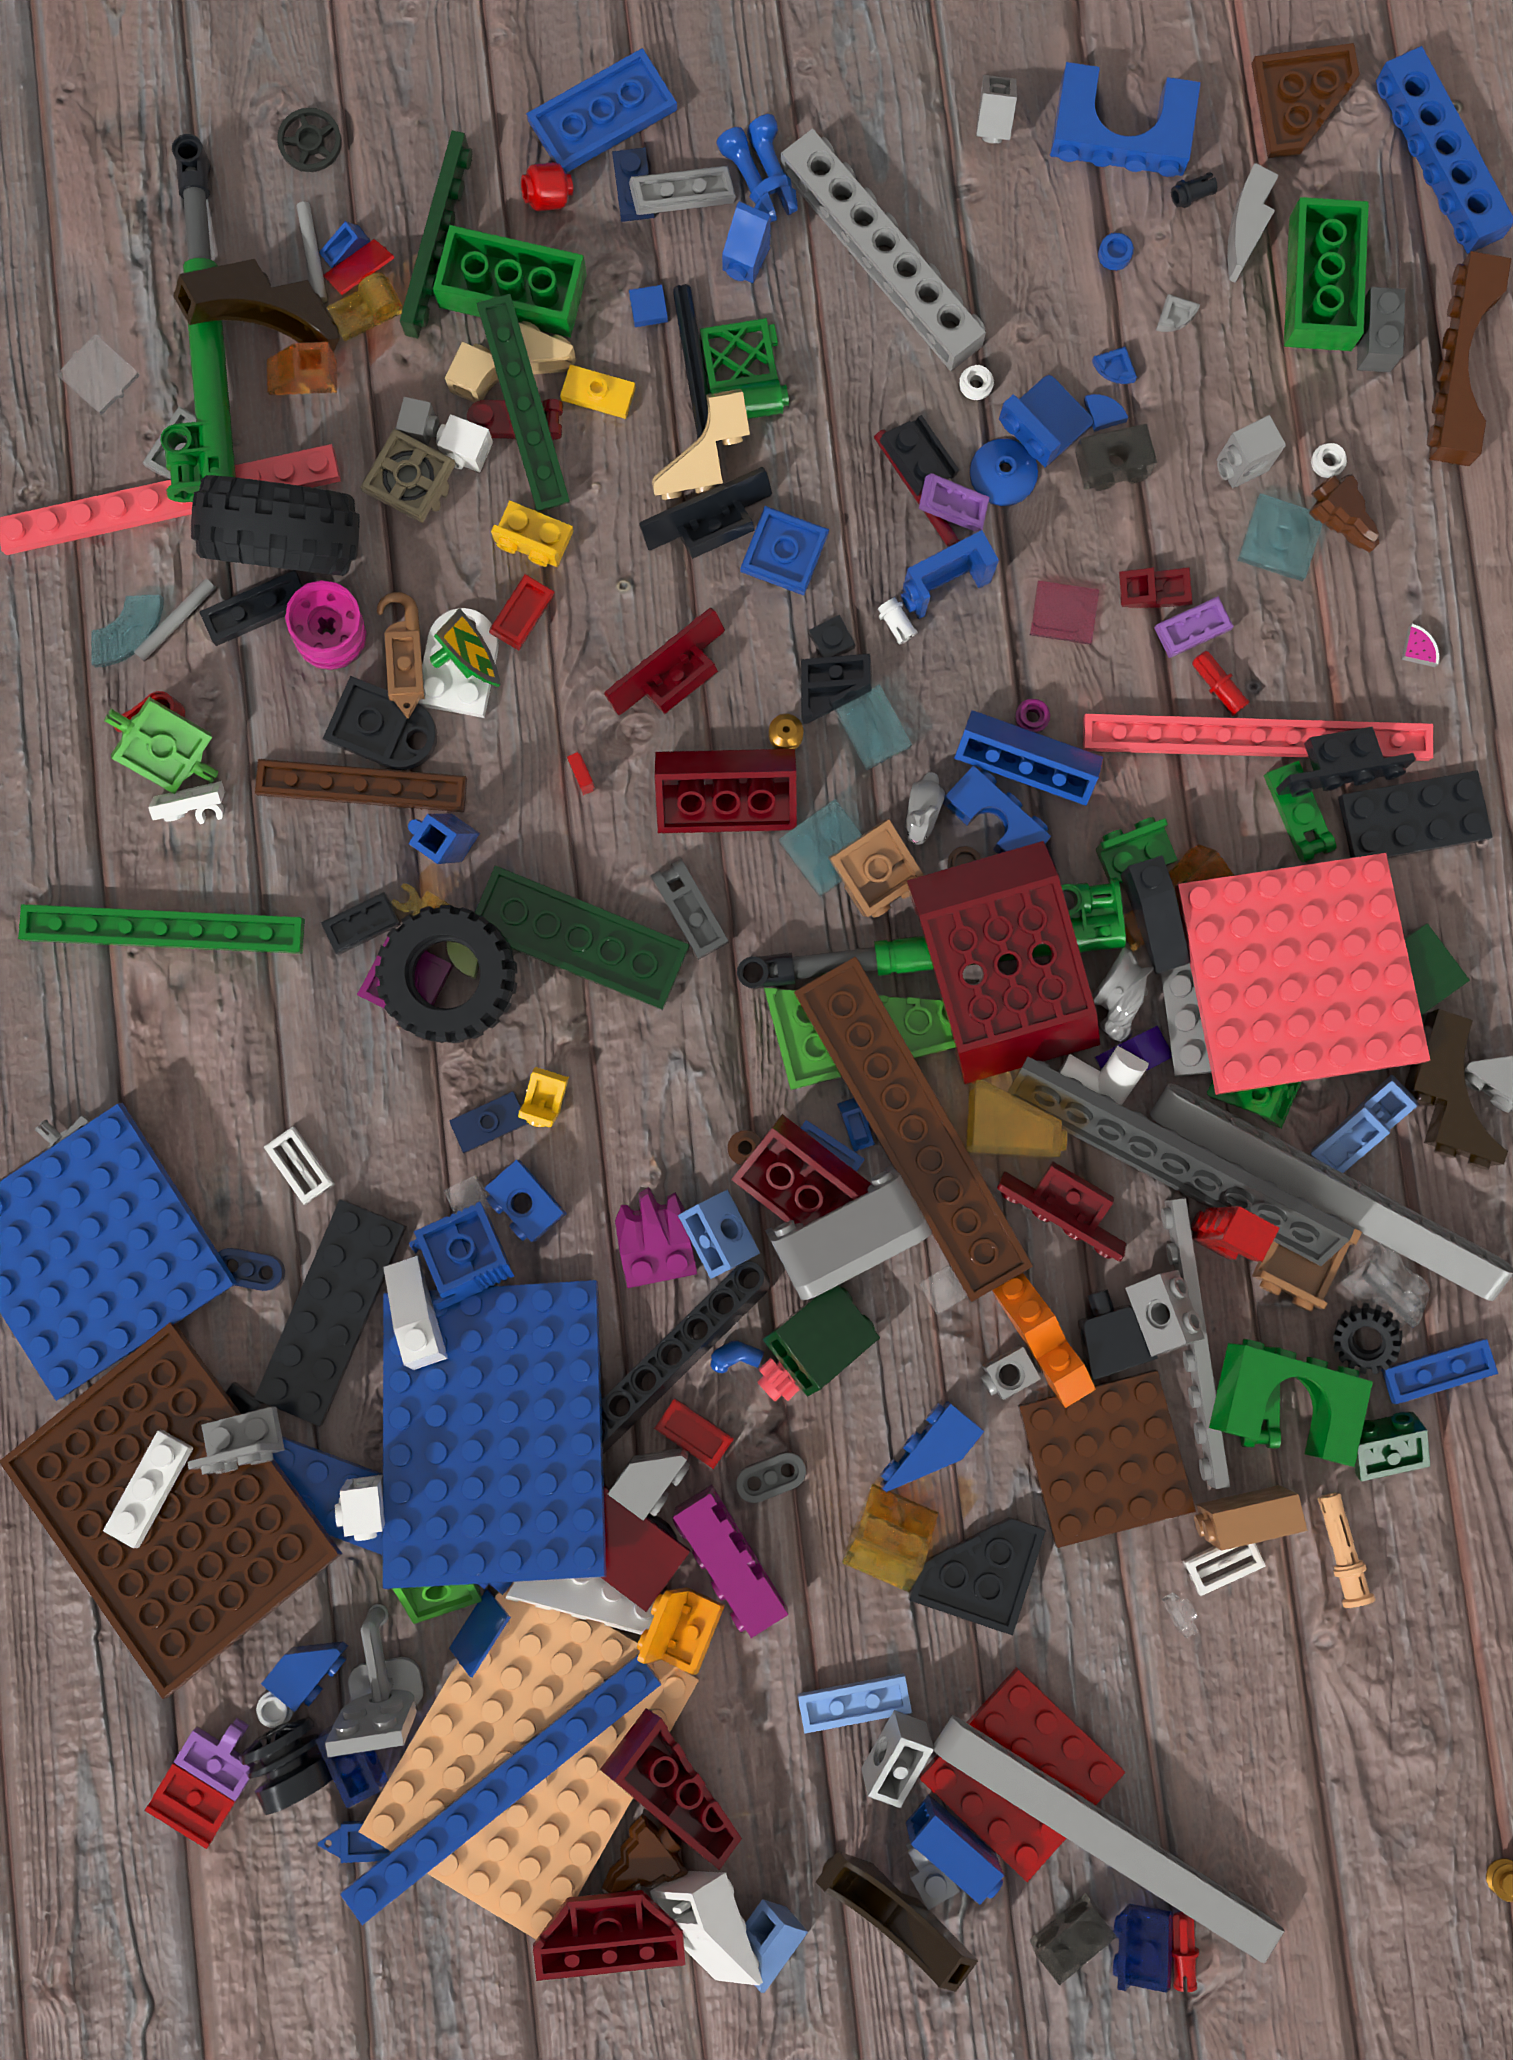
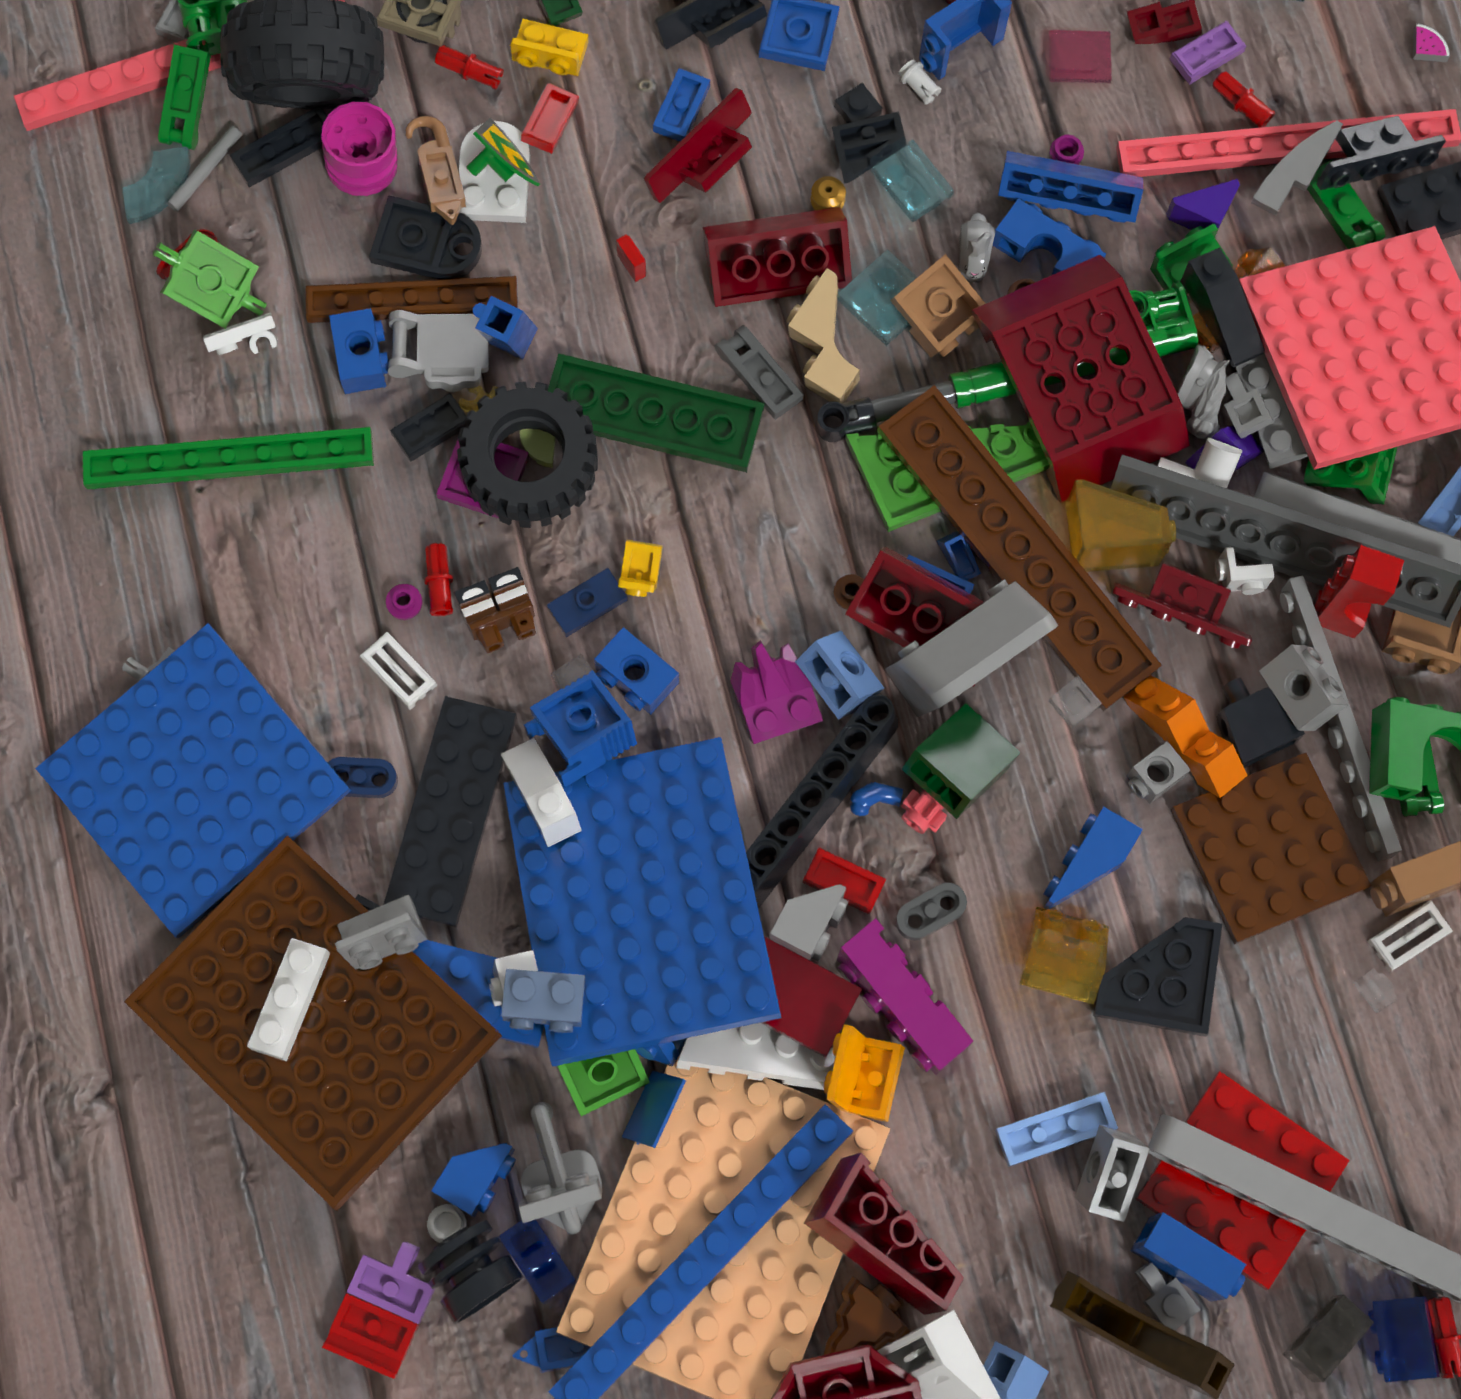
camera: 10 degrees left, 10 degrees down
(160, 544) = (184, 96): none -> green plate
(290, 818) = (354, 331): none -> blue brick
(322, 1103) = (408, 611): none -> magenta plate
(349, 1080) = (438, 580): none -> red axle
(379, 1537) = (543, 999): none -> sand blue bracket
(381, 845) = (447, 349): none -> light grey piece
(398, 1116) = (513, 606): none -> reddish brown hips
(449, 545) = (468, 66): none -> red axle
(654, 615) = (681, 105): none -> blue plate
(752, 871) = (814, 328): none -> tan arch
(1132, 1190) = (1248, 579): none -> white bracket
(1160, 797) = (1203, 206): none -> dark purple slope
(1162, 1020) = (1247, 409): none -> light grey plate
(1259, 770) = (1296, 169): none -> light grey slope

